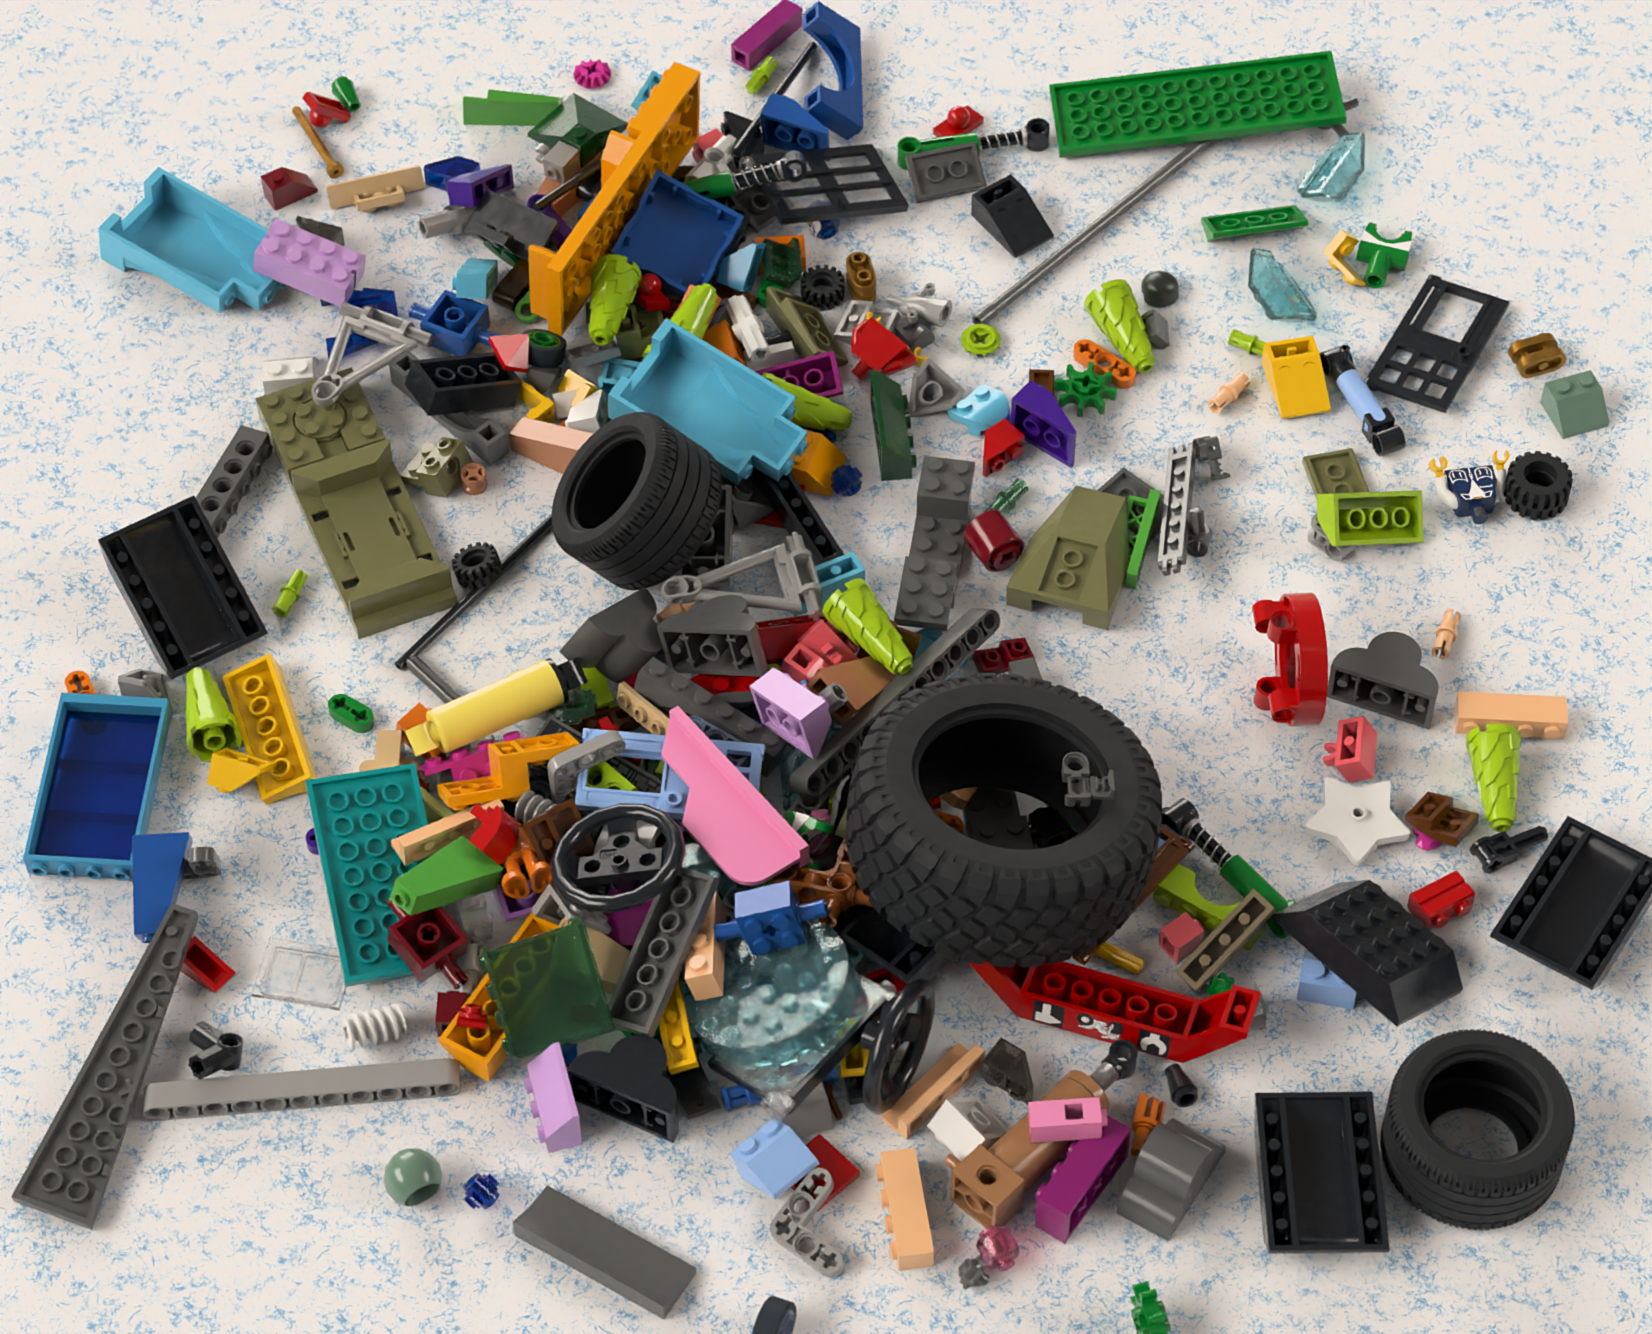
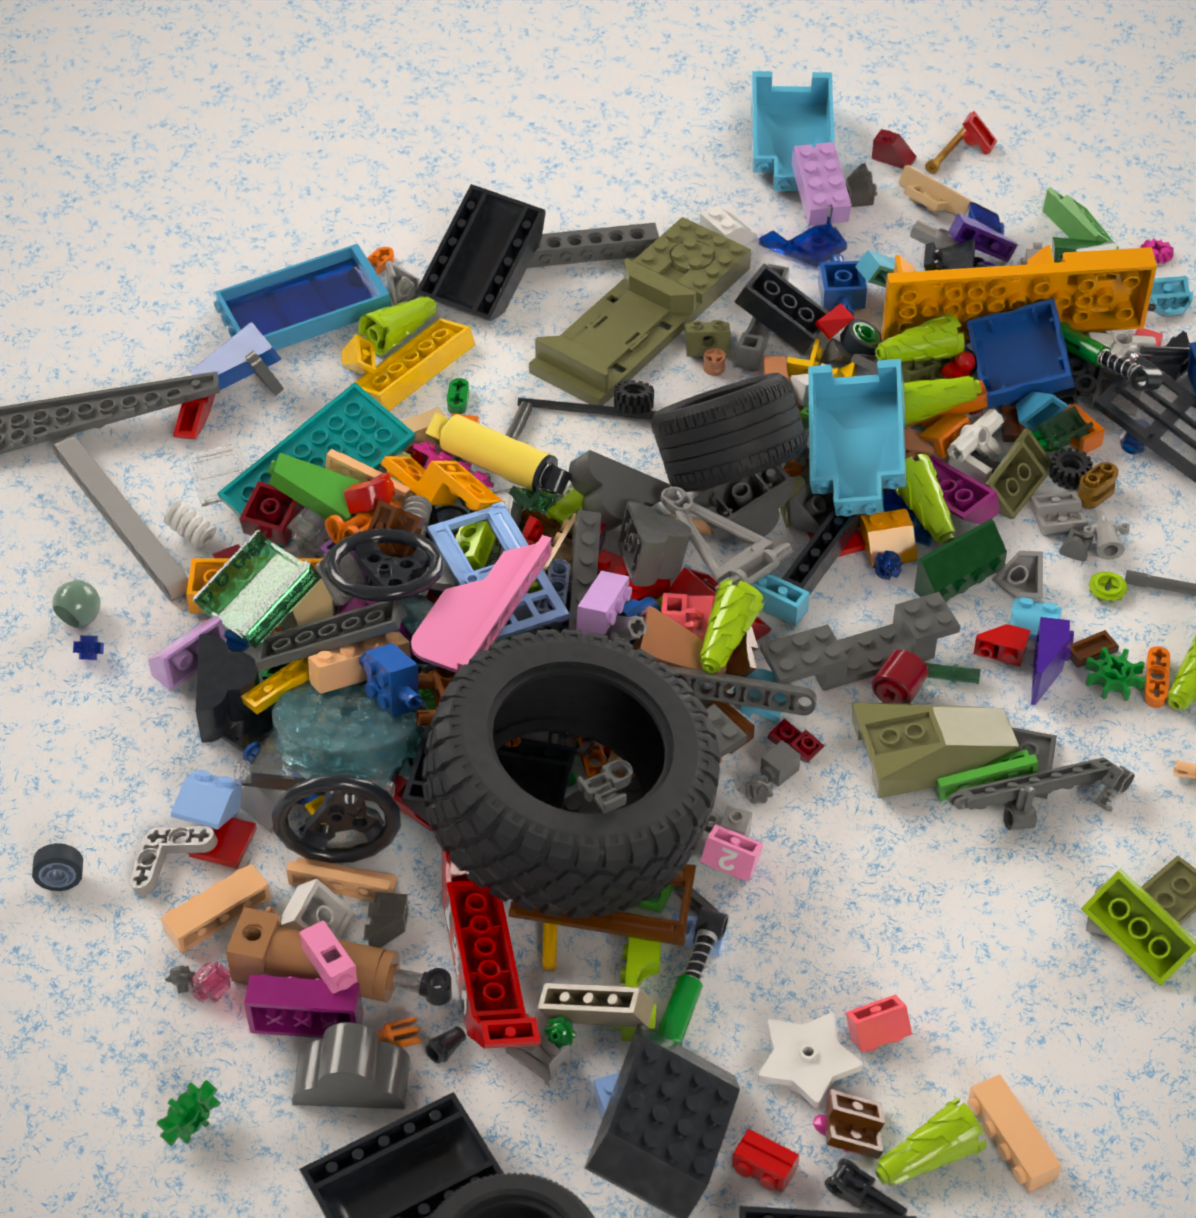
camera: 60 degrees right, 5 degrees down
(219, 1051) = (122, 461): black piece -> none
(289, 593) = (537, 318): lime axle -> none
(345, 92) = (1008, 137): green cone -> none
(376, 326) = (799, 245): light grey piece -> none
(472, 1017) = (216, 562): red plate -> none
(566, 765) = (456, 505): light grey beam -> none
(604, 1251) = (78, 743): dark grey arch -> none
(828, 1089) = (301, 812): reddish brown piece -> none
(880, 350) = (1034, 525): red torso -> none
(1181, 937) = (595, 974): coral brick -> none
(1301, 659) = (897, 957): red piece -> none
(1386, 679) = (973, 1011): dark grey brick -> none
(1446, 634) = (1068, 1044): light nougat pin -> none

